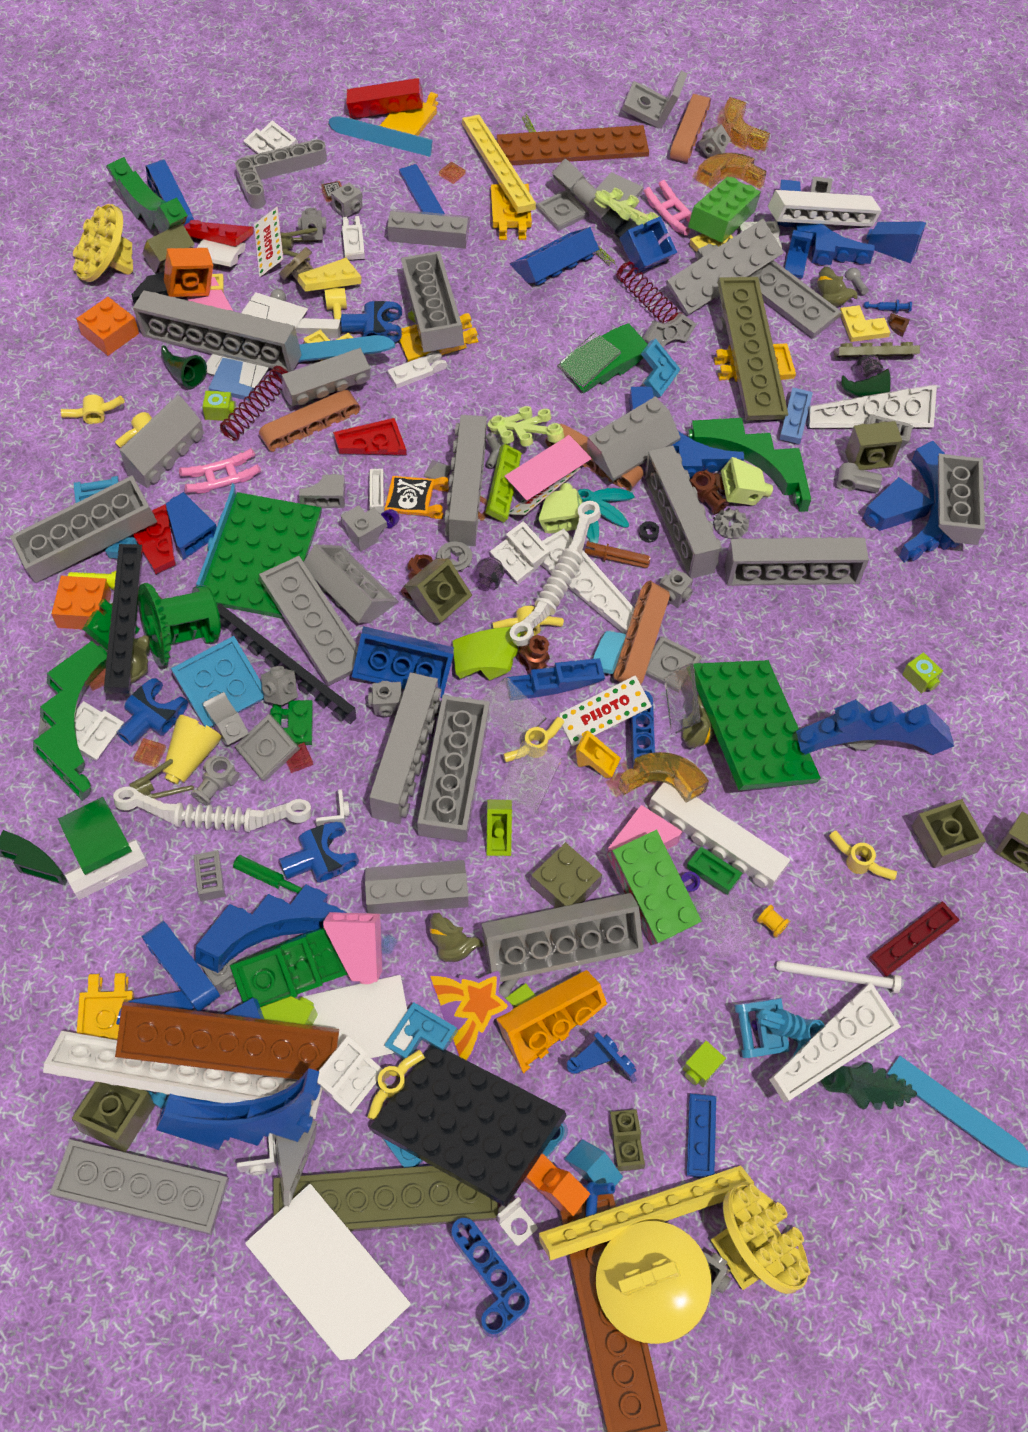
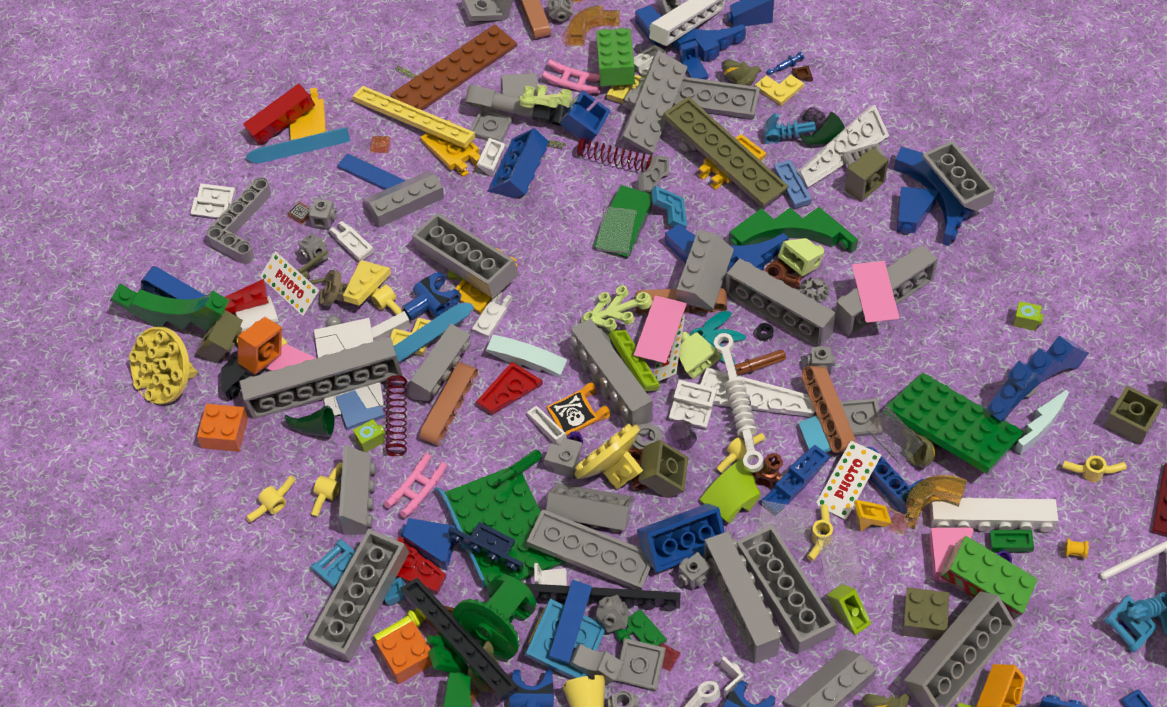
camera: 30 degrees left, 5 degrees down
(230, 555) = (490, 542): none -> dark blue bracket
(233, 667) = (570, 622): none -> blue tile
(258, 621) = (550, 577): none -> white bracket
(318, 509) = (521, 465): none -> green axle
(326, 493) = (514, 448): light grey arch -> none
(397, 547) = (613, 459): none -> light yellow bracket
(412, 420) = (526, 355): none -> light aqua slope
(436, 470) = (575, 382): light grey slope -> none
(536, 235) = (491, 156): none -> white slope
(703, 1064) = (1115, 673): lime brick -> none
(777, 552) = (875, 291): none -> bright pink sticker
(821, 358) = (774, 131): none -> dark azure piece
(851, 478) = (869, 206): light grey piece -> none
(854, 275) = (741, 54): light grey bar -> none
(854, 779) = (1043, 420): none -> light aqua slope
(884, 349) = (812, 98): olive plate -> none

